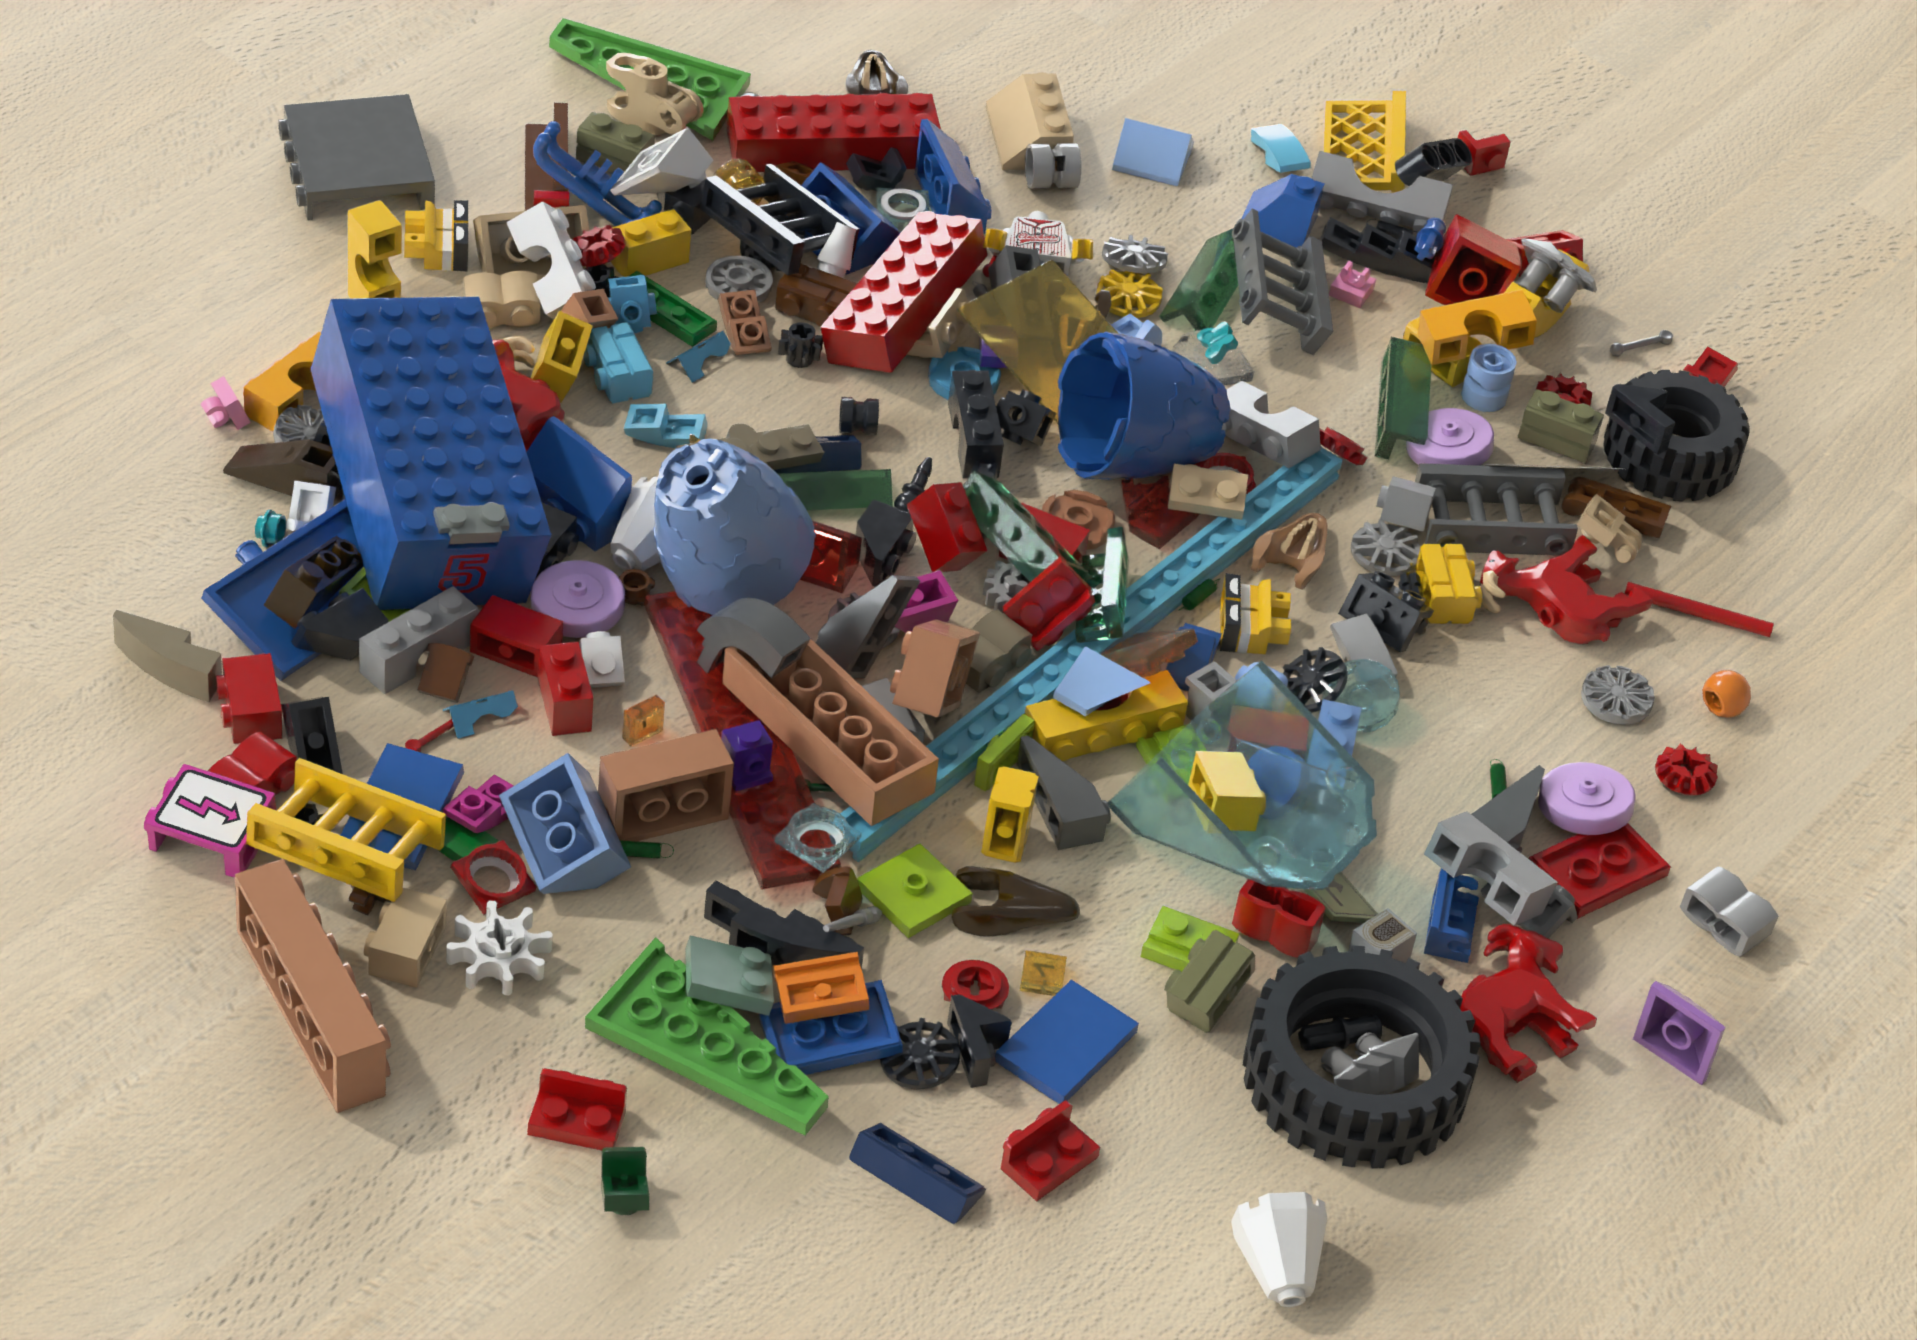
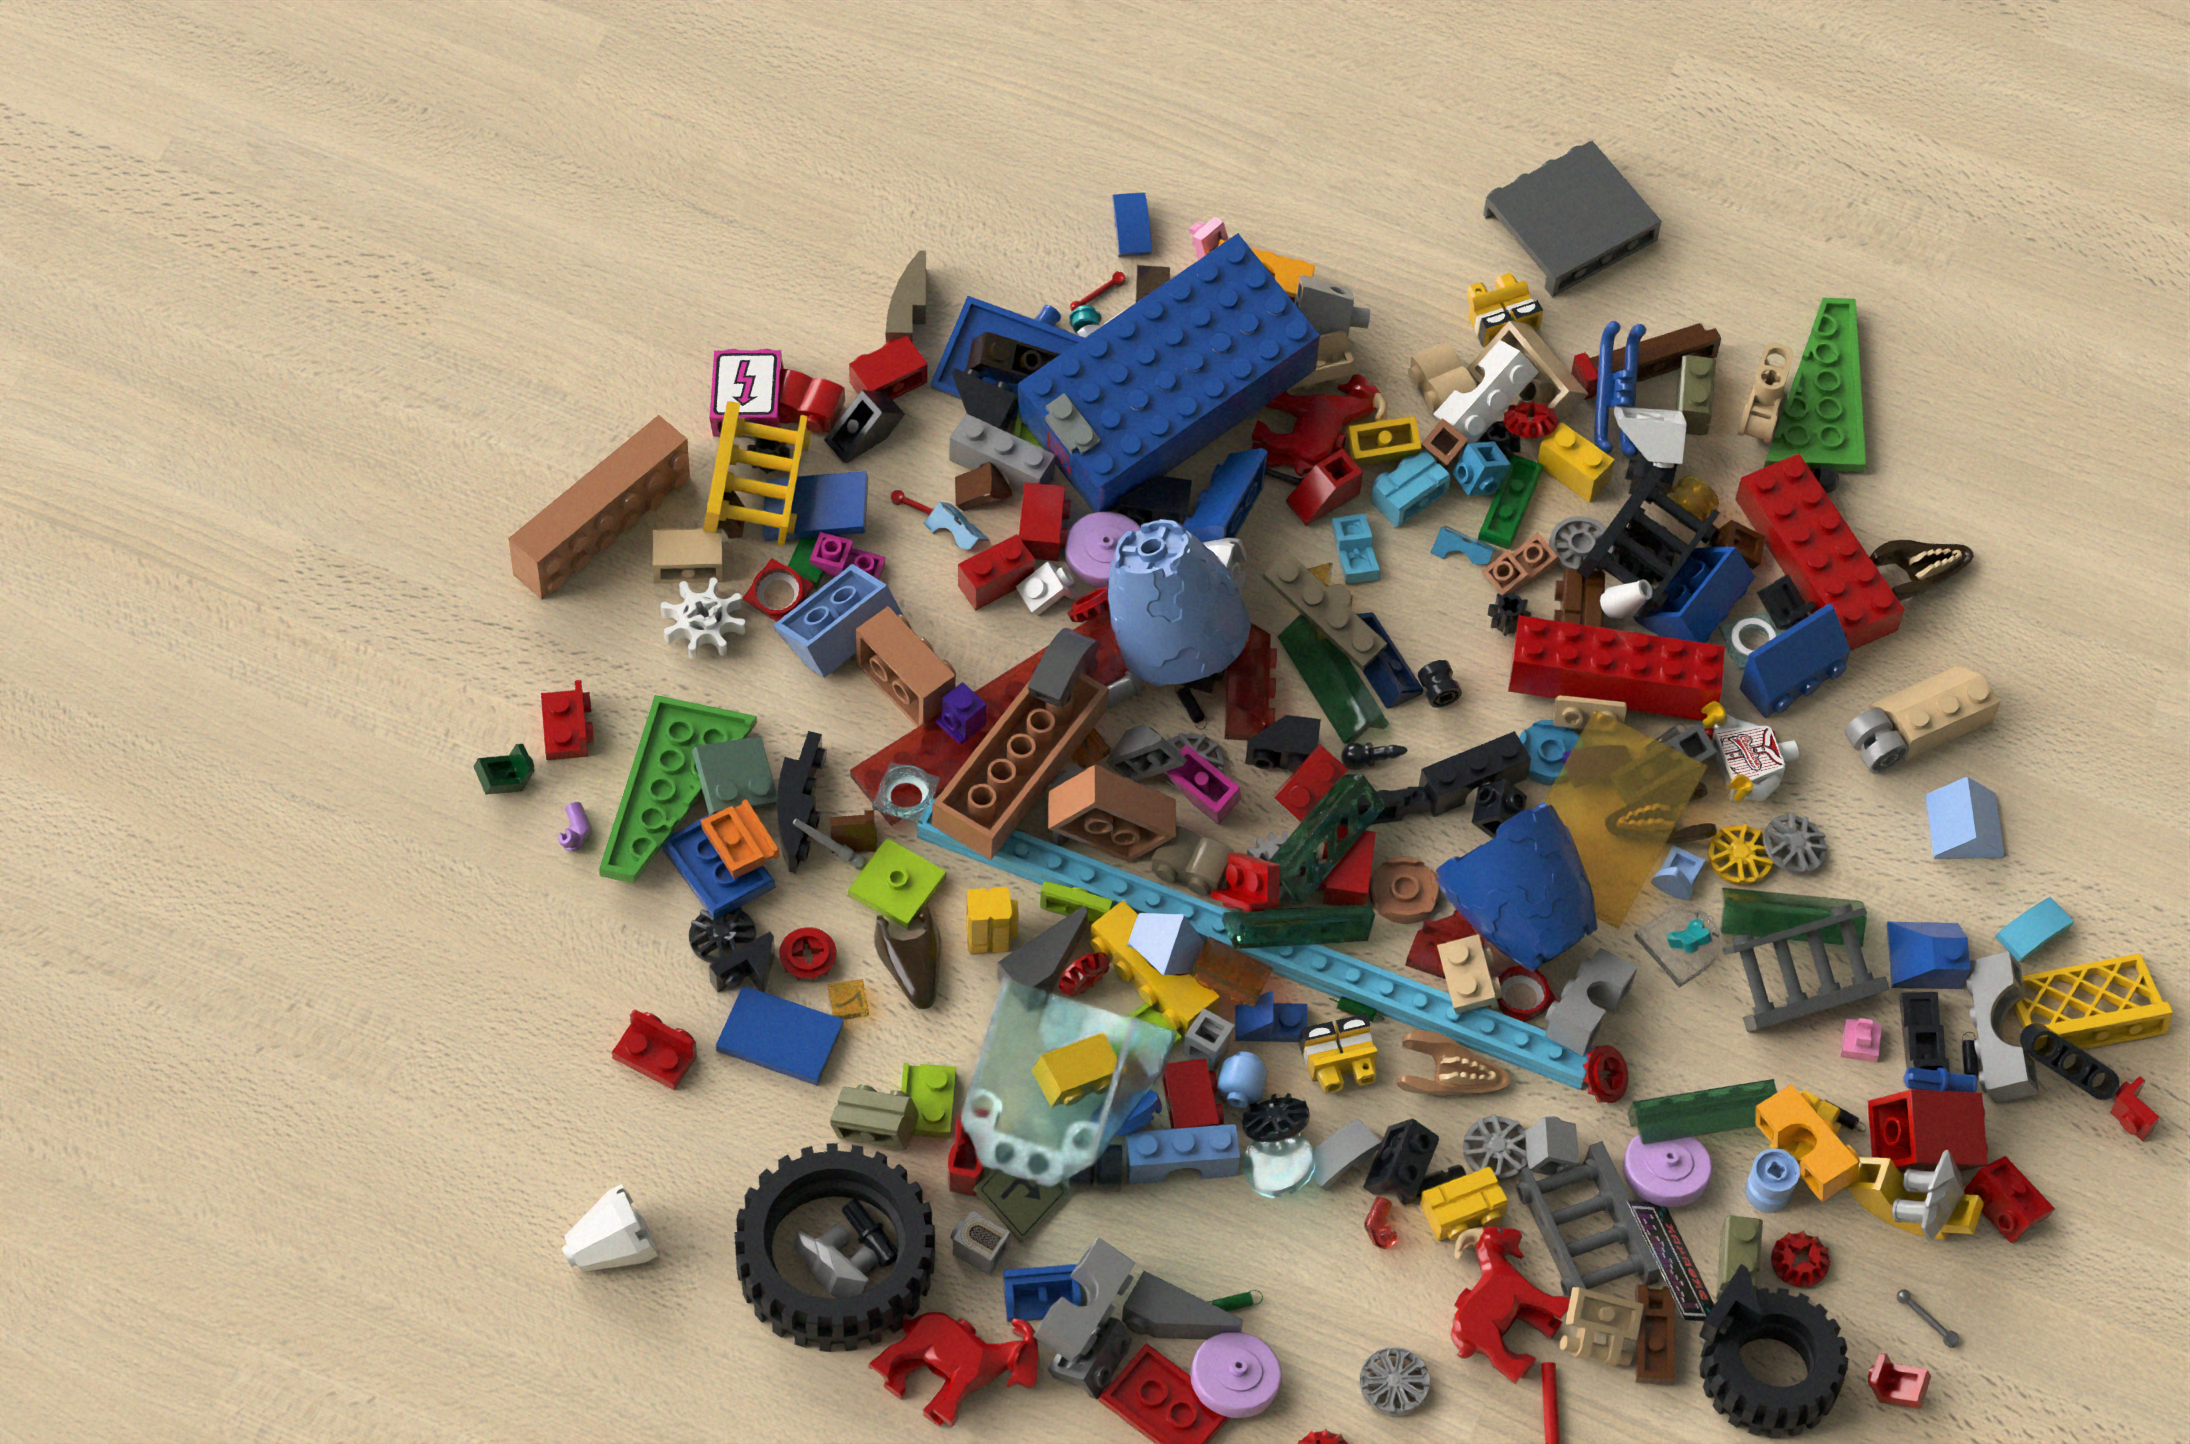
camera: 75 degrees right, 15 degrees up
(176, 456) = (1132, 224): none -> blue slope
(226, 493) = (1118, 279): none -> red hinge
(372, 239) = (1414, 259): yellow arch -> none
(592, 410) = (1326, 487): none -> red slope
(637, 620) = (1089, 605): none -> red gear
(643, 720) = (989, 637): clear orange tile -> none
(643, 849) = (856, 681): green piece -> none
(727, 1142) = (579, 829): none -> medium lavender arm
(798, 601) = (1191, 705): none -> black piece
(916, 1172) = (605, 965): dark blue slope -> none
(1098, 764) = (1084, 973): none -> red gear
(1445, 655) = (1375, 1224): none -> clear red arm

